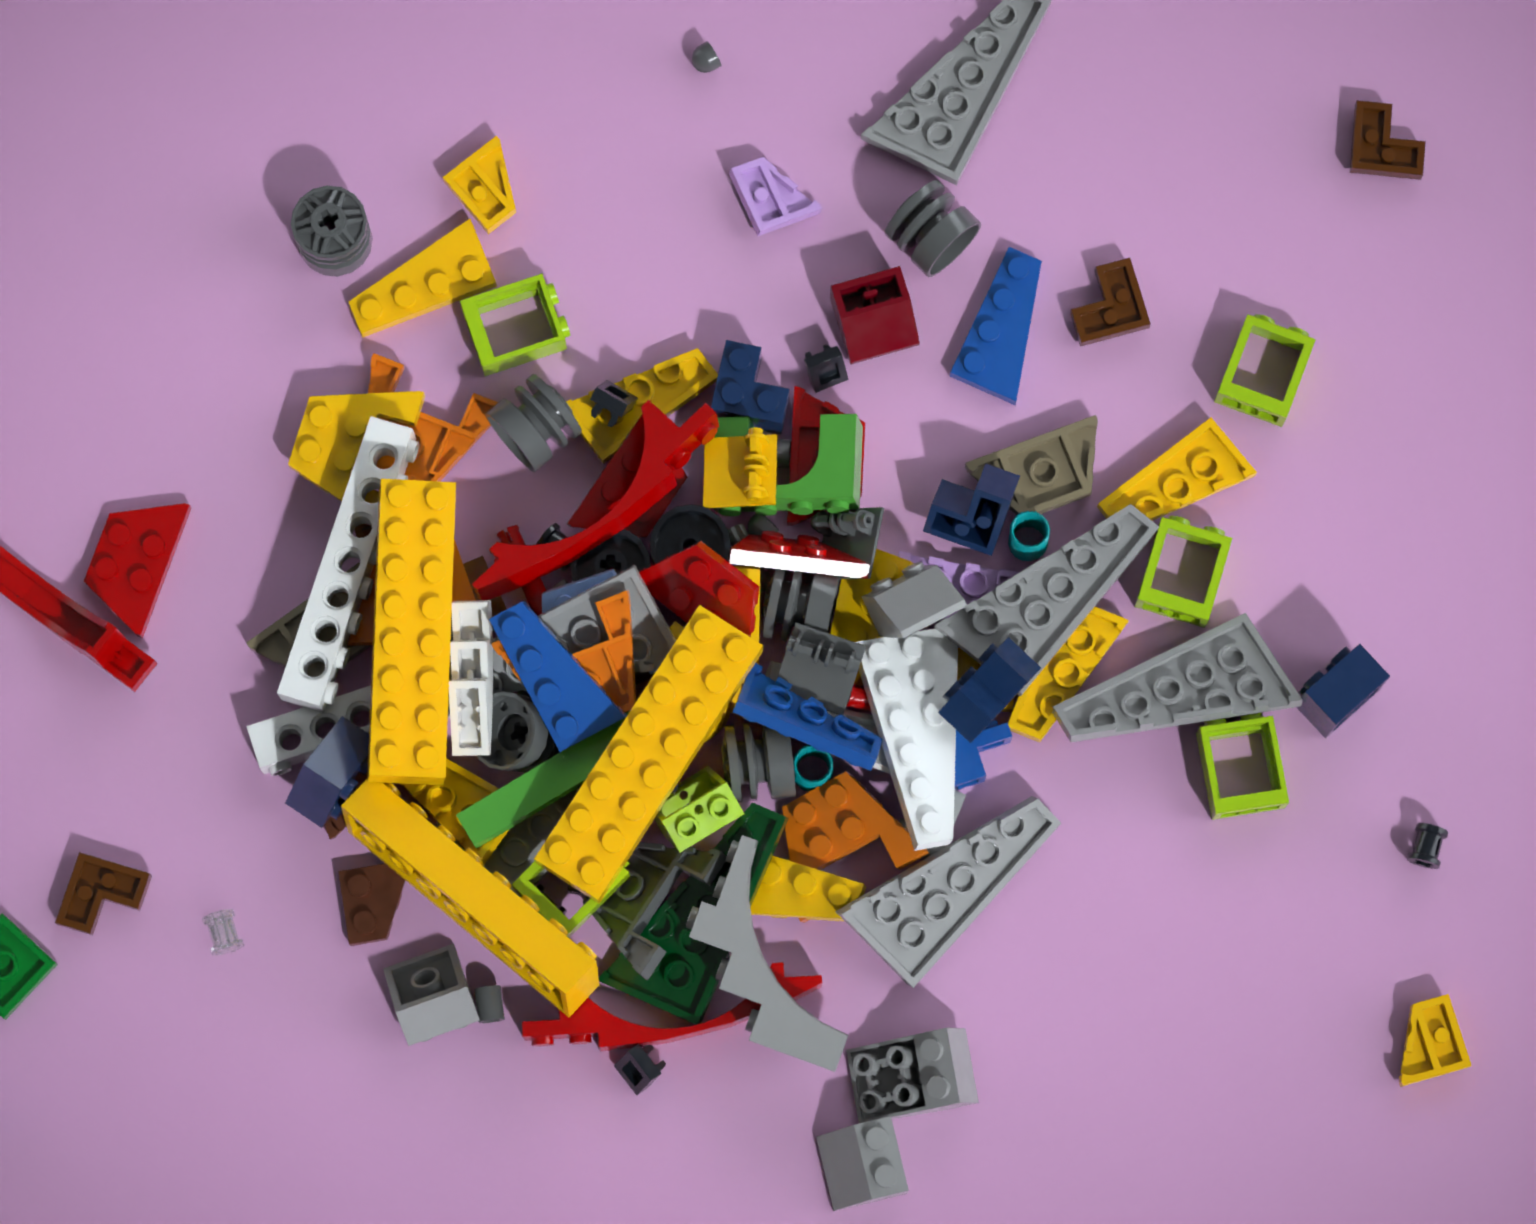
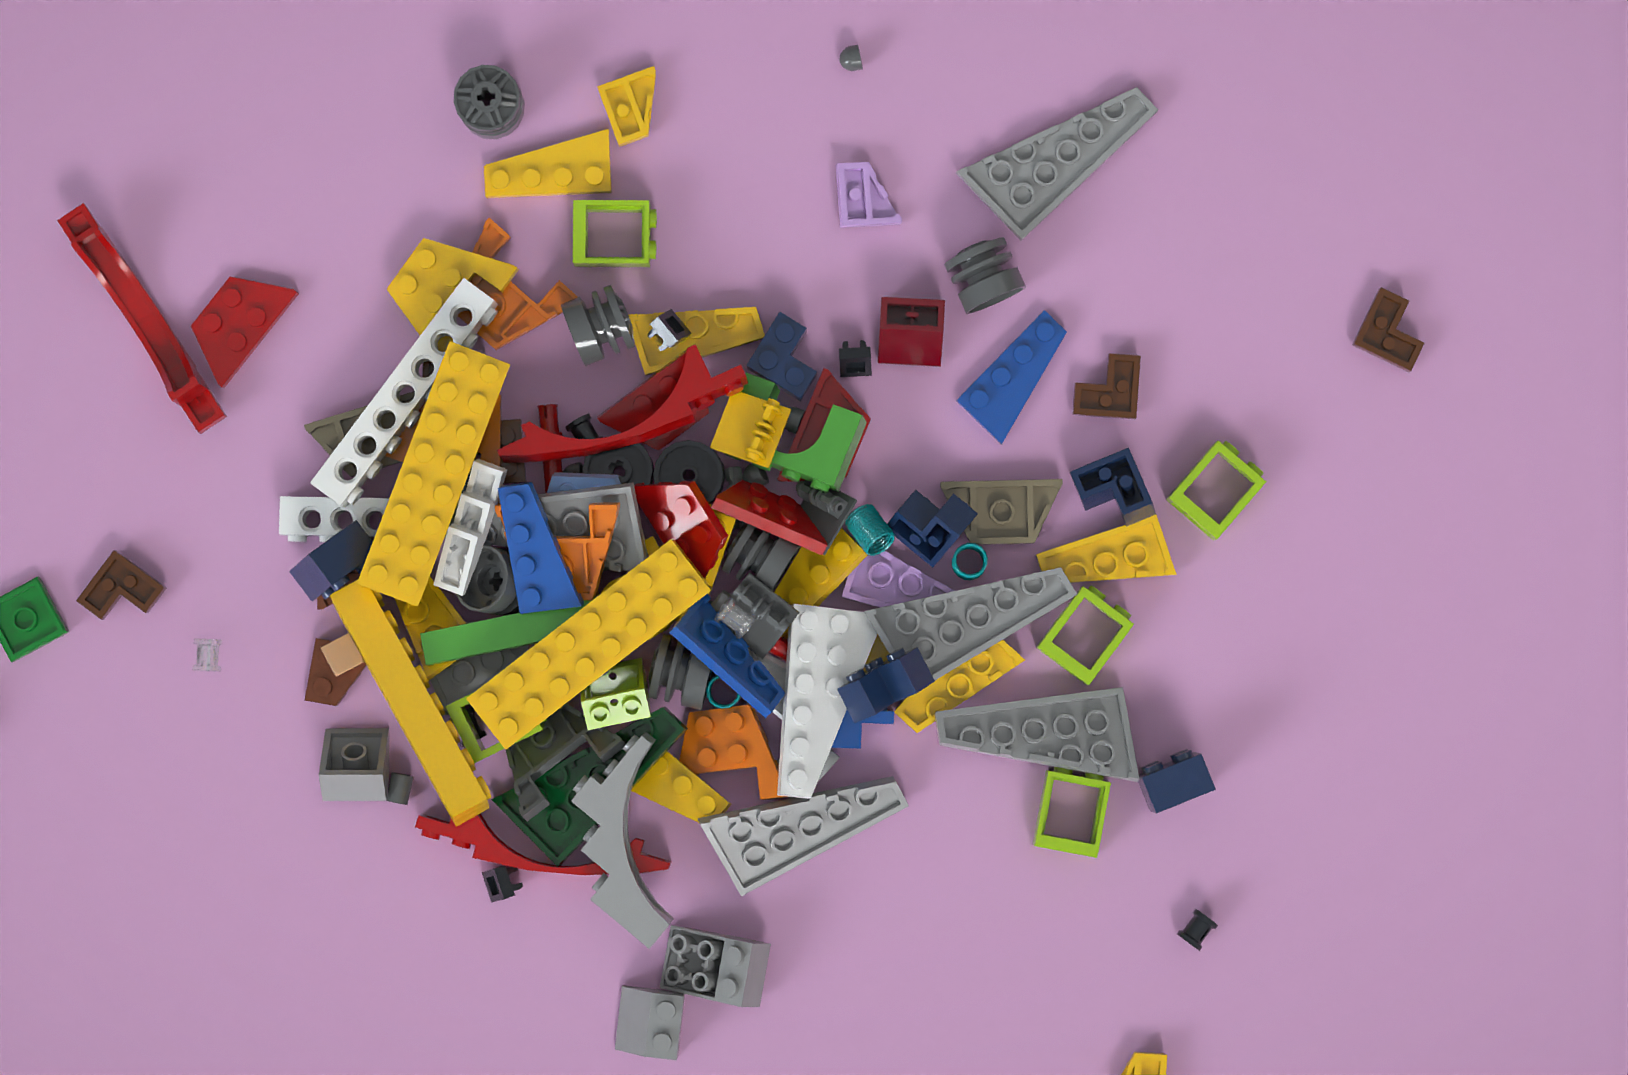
camera: 25 degrees right, 10 degrees up
(375, 876) = (342, 654): none -> light nougat slope
(797, 675) = (735, 617): none -> clear bush
(908, 537) = (870, 529): none -> teal piece
(912, 601) = (851, 588): light grey slope -> none
(1152, 394) = (1115, 479): none -> dark blue brick

